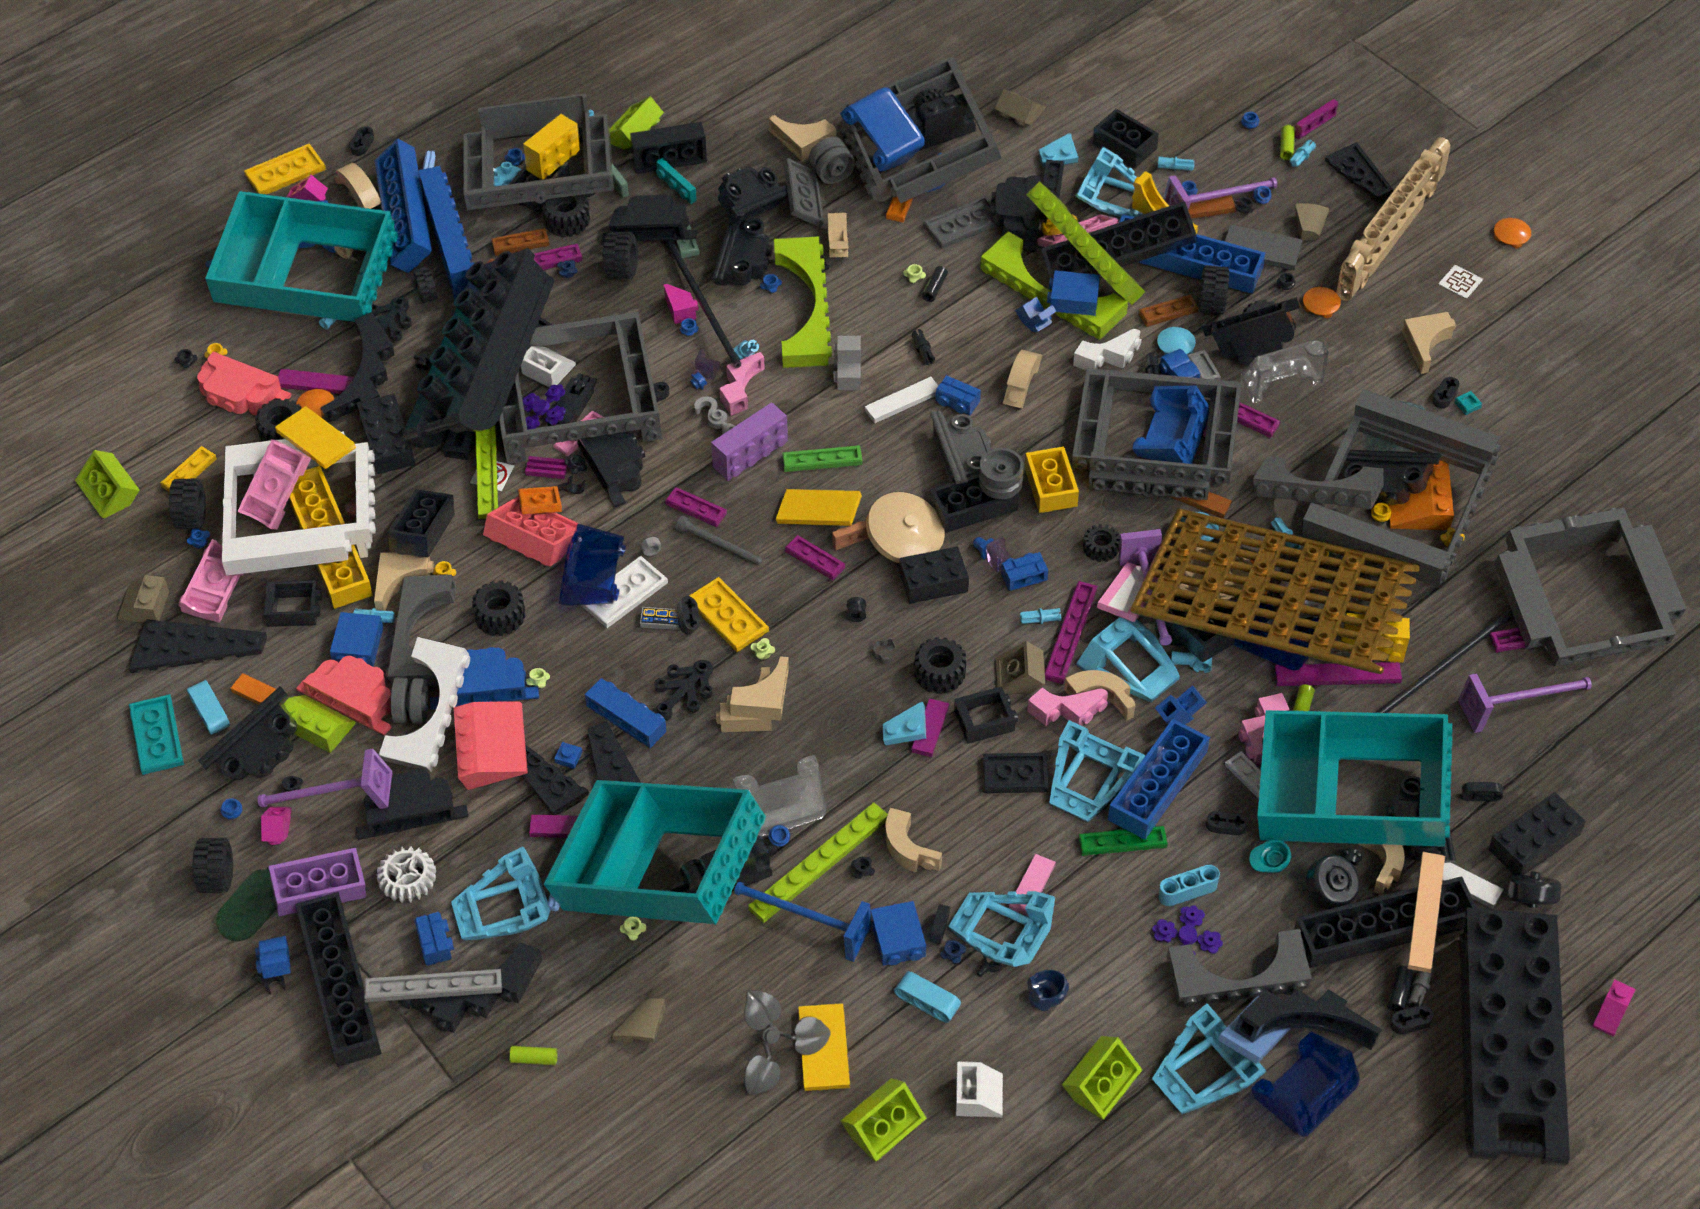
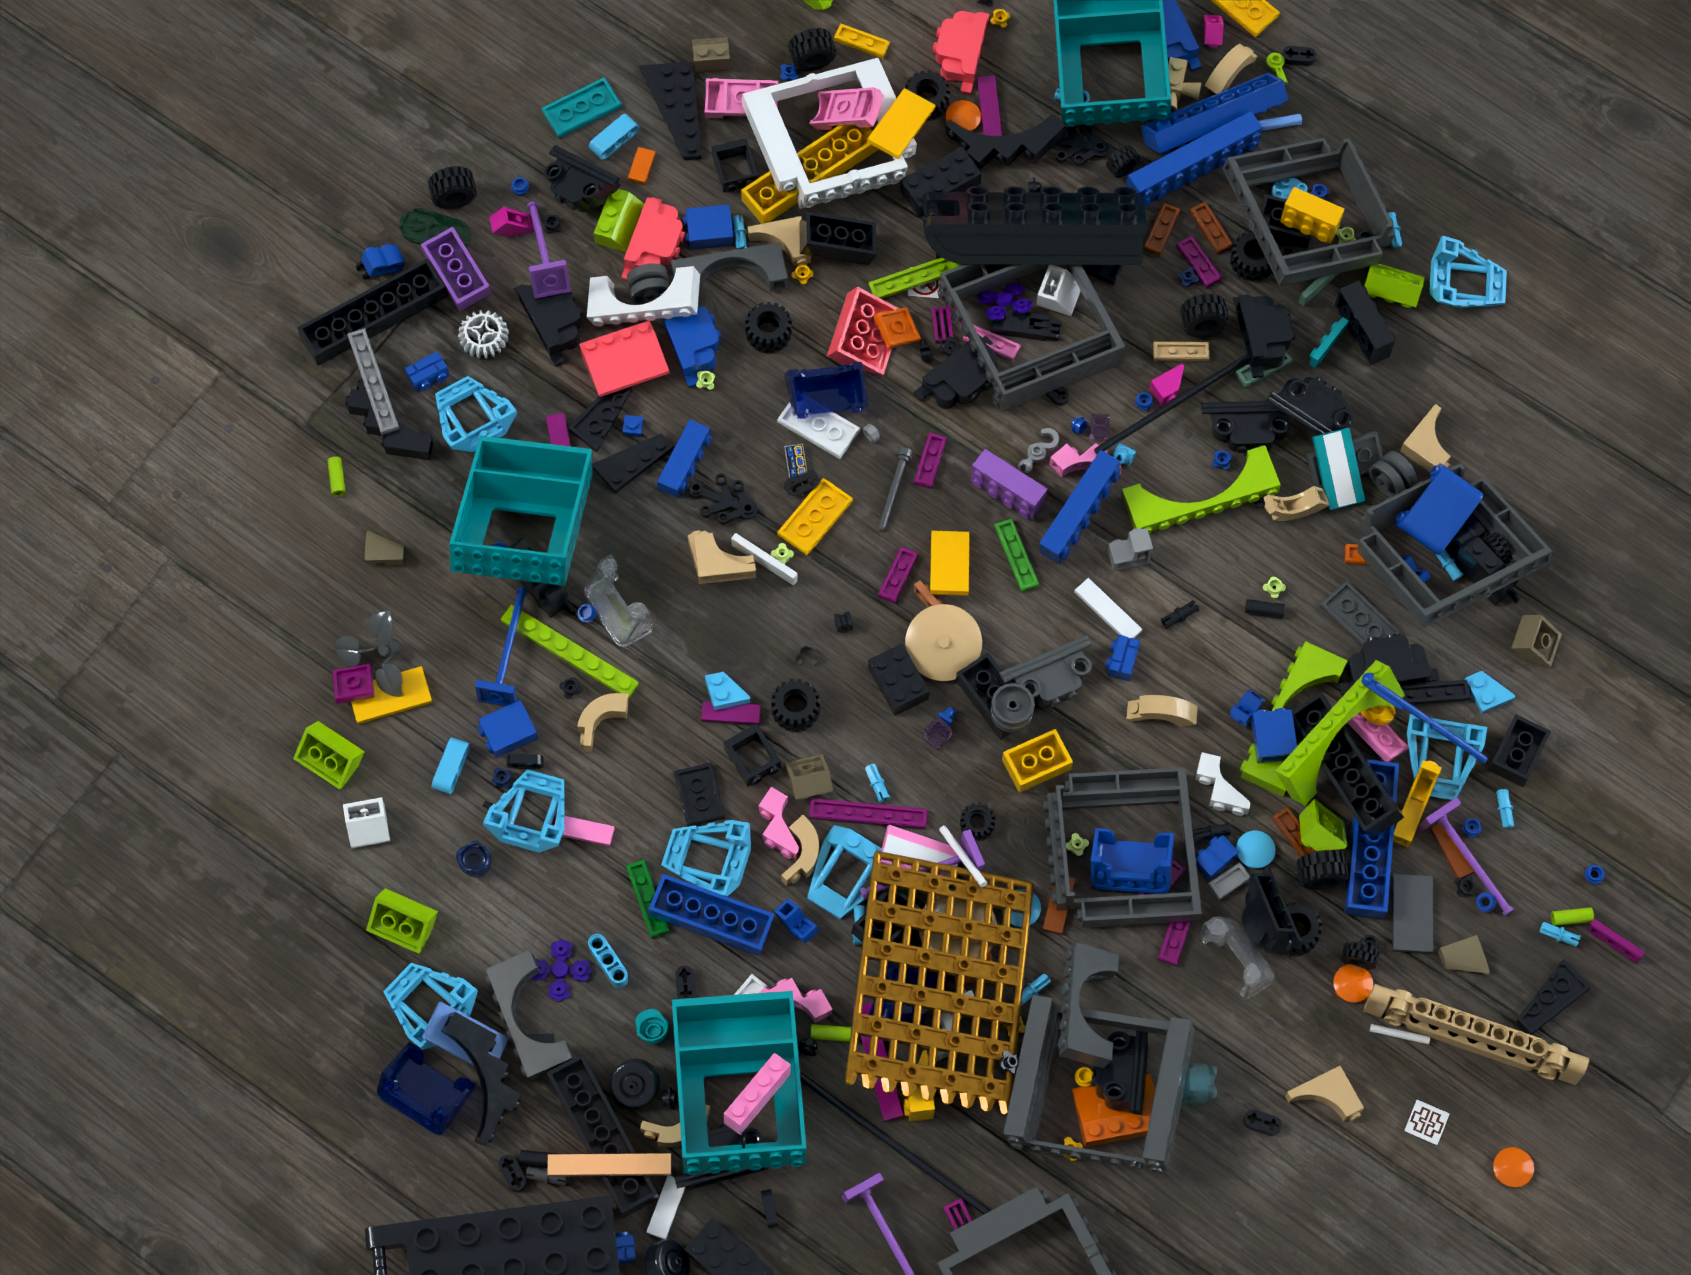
camera: 75 degrees right, 15 degrees up
(363, 159) = (1275, 62): none -> lime plate
(617, 79) = (1440, 276): none -> medium azure windscreen
(644, 290) = (1181, 351): none -> tan tile
(769, 659) = (764, 559): none -> white tile
(796, 386) = (1079, 507): none -> blue brick
(803, 1077) = (353, 683): none -> magenta tile
(812, 194) = (1338, 468): none -> tile
(931, 148) = (1449, 565): none -> medium azure axle
(1024, 571) = (924, 758): blue brick -> none
(1053, 195) = (1399, 703): none -> blue bar
(1144, 550) = (963, 856): none -> white bar
(1174, 280) = (1321, 828): none -> lime slope
(1300, 283) = (1360, 955): none -> black tyre
(1369, 551) = (1004, 1062): none -> black plate
(1376, 279) = (1399, 1034): none -> white bar
(1385, 743) = (757, 1093): none -> bright pink brick
(1468, 403) = (1255, 1146): teal tile -> none

